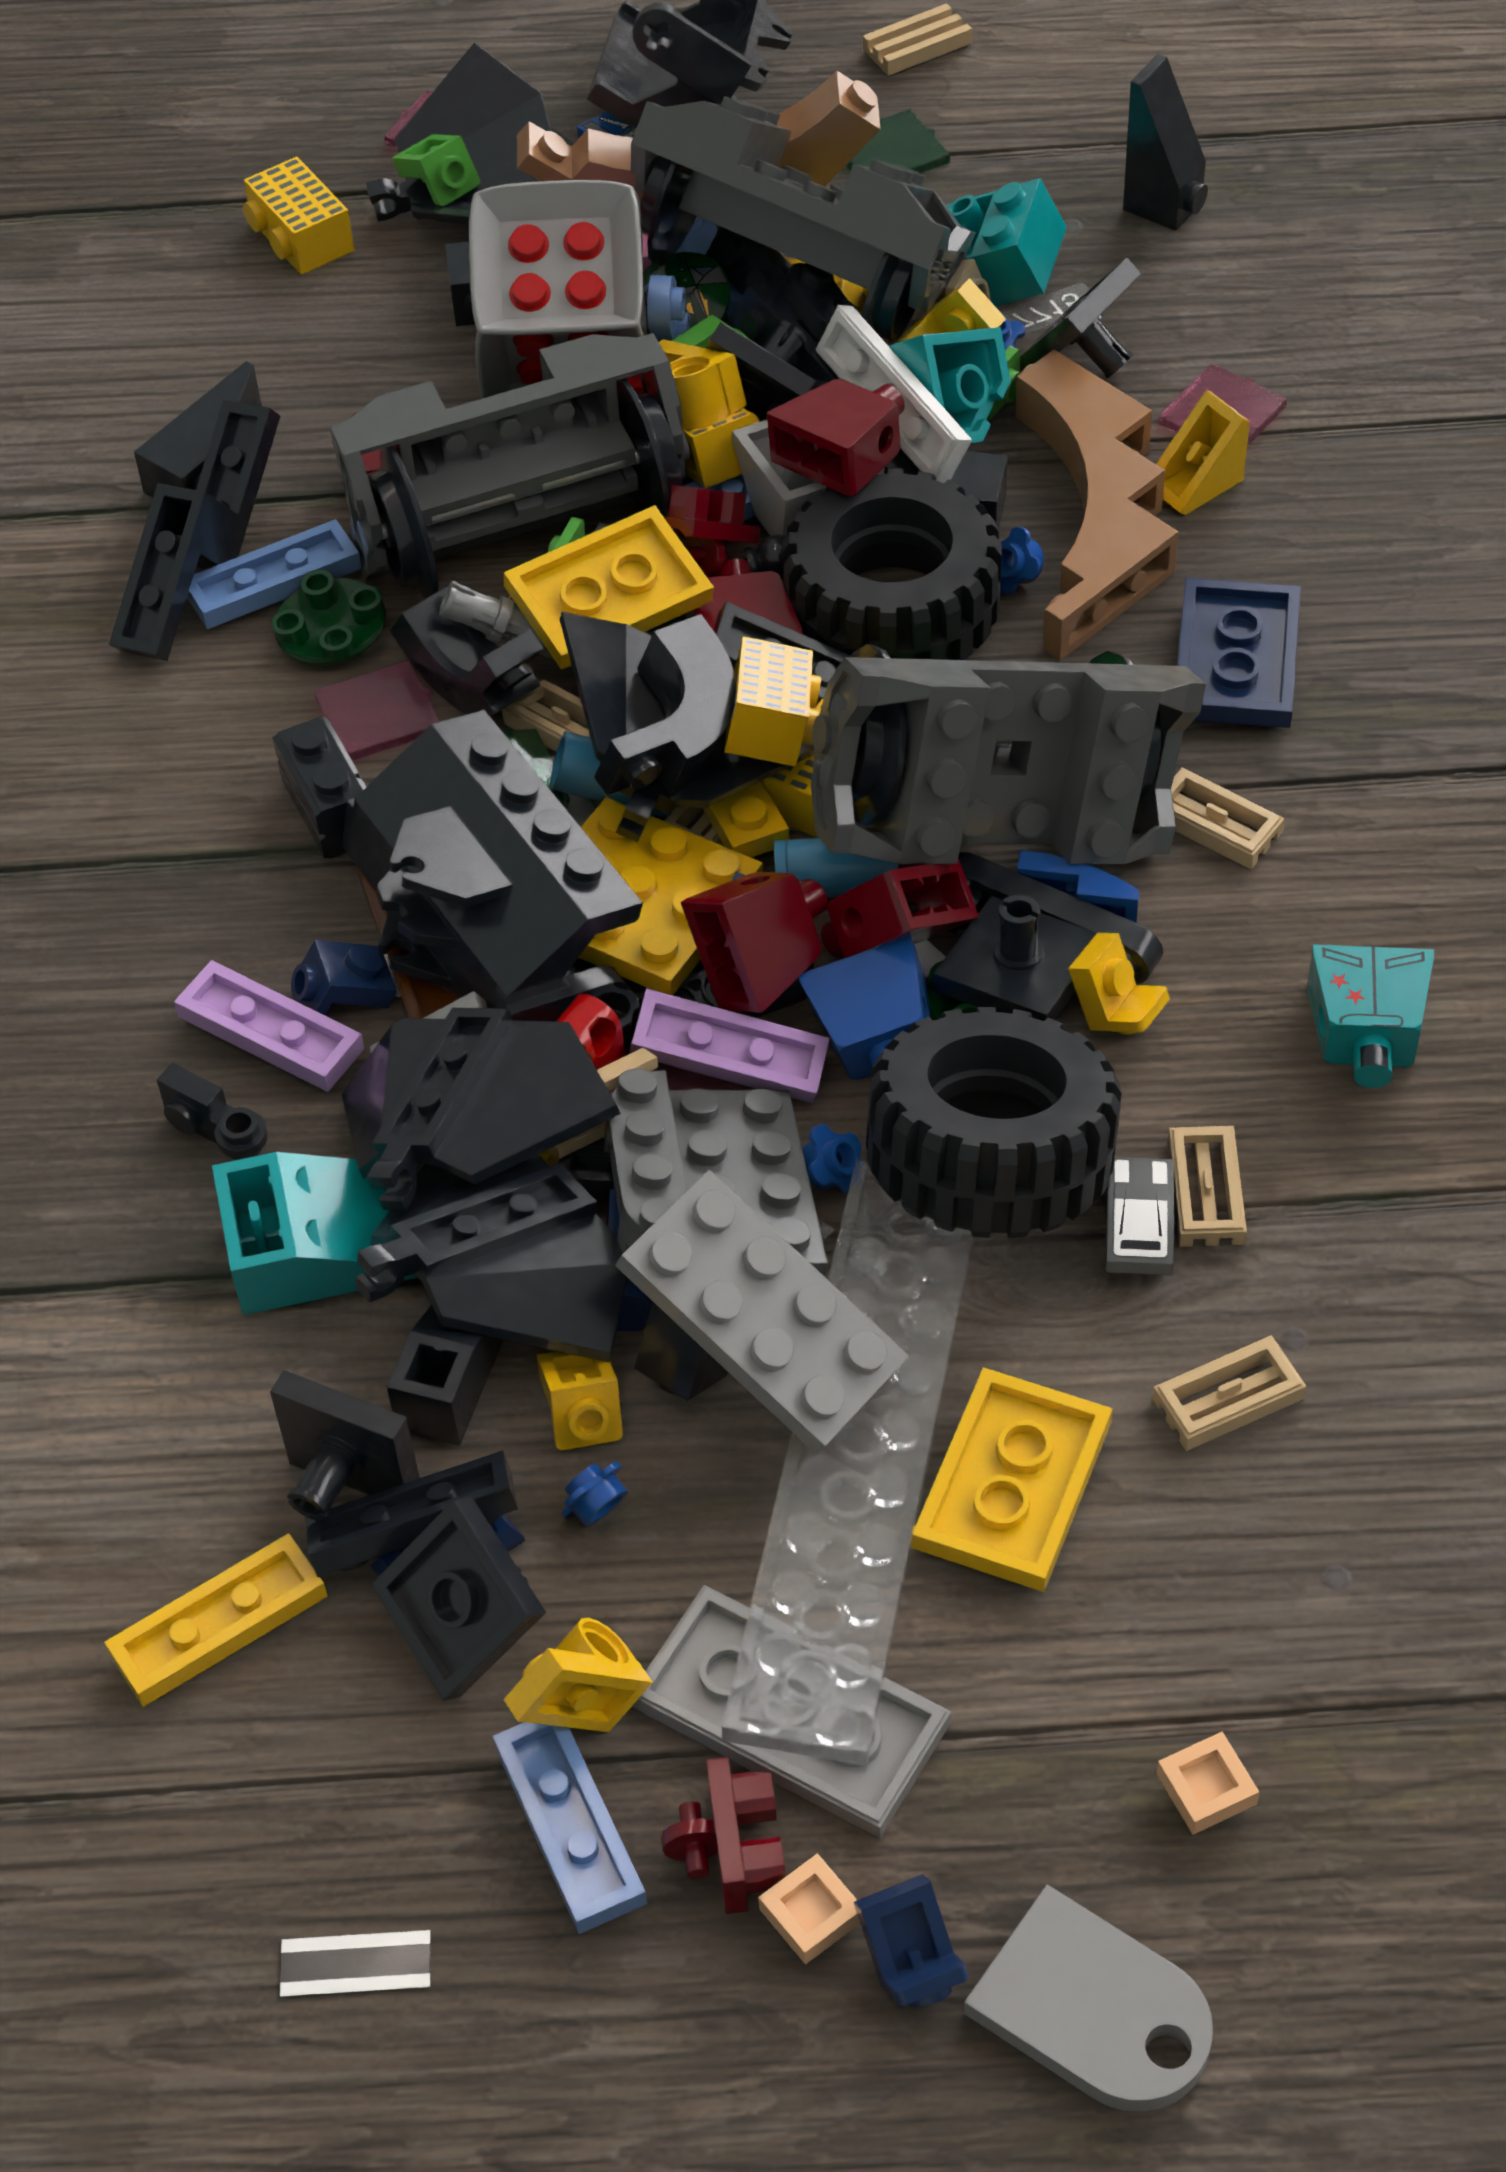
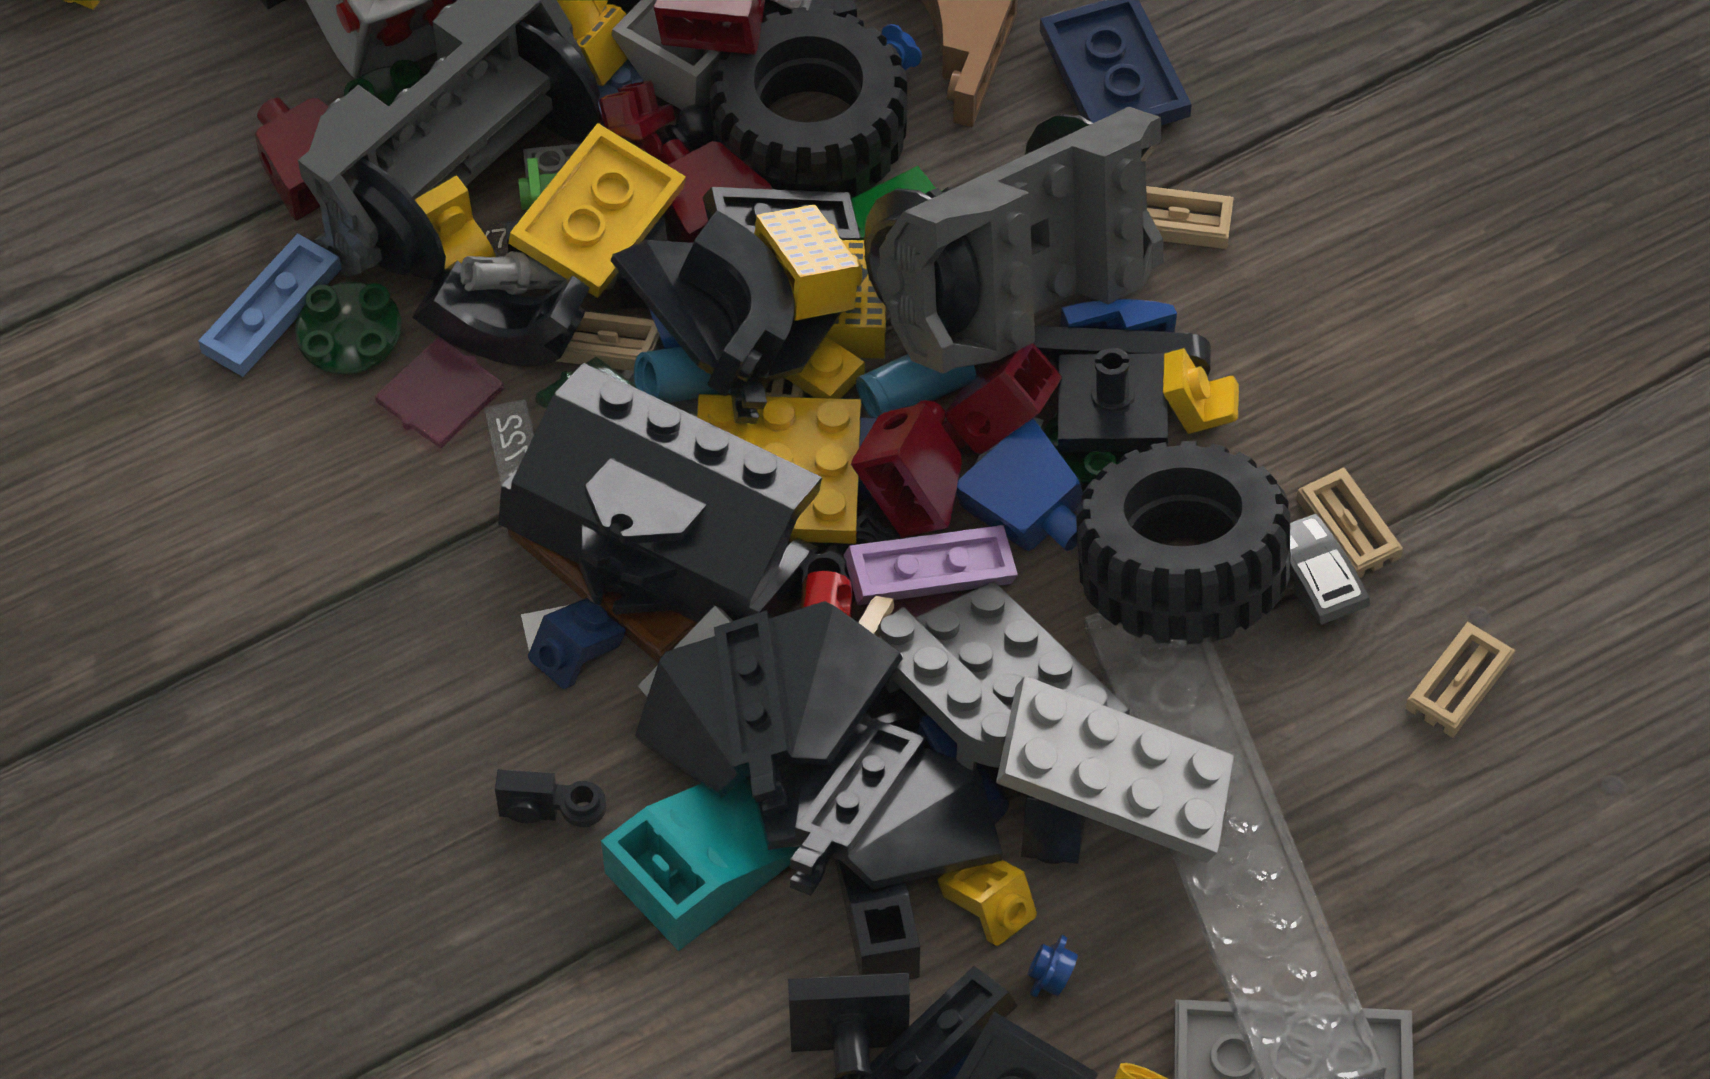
camera: 30 degrees left, 5 degrees up
(180, 448) = (126, 223): black slope -> none
(194, 529) = (189, 292): black bracket -> none
(269, 1025) = (540, 703): lavender plate -> none
(318, 779) = (450, 477): black brick -> none
(467, 548) = (452, 218): none -> yellow plate
(831, 1158) = (1065, 621): blue plate -> none
(1012, 1479) = (1351, 814): yellow plate -> none
(1207, 1783) = (1620, 978): light nougat plate -> none
(1369, 1006) = (1390, 329): teal torso -> none

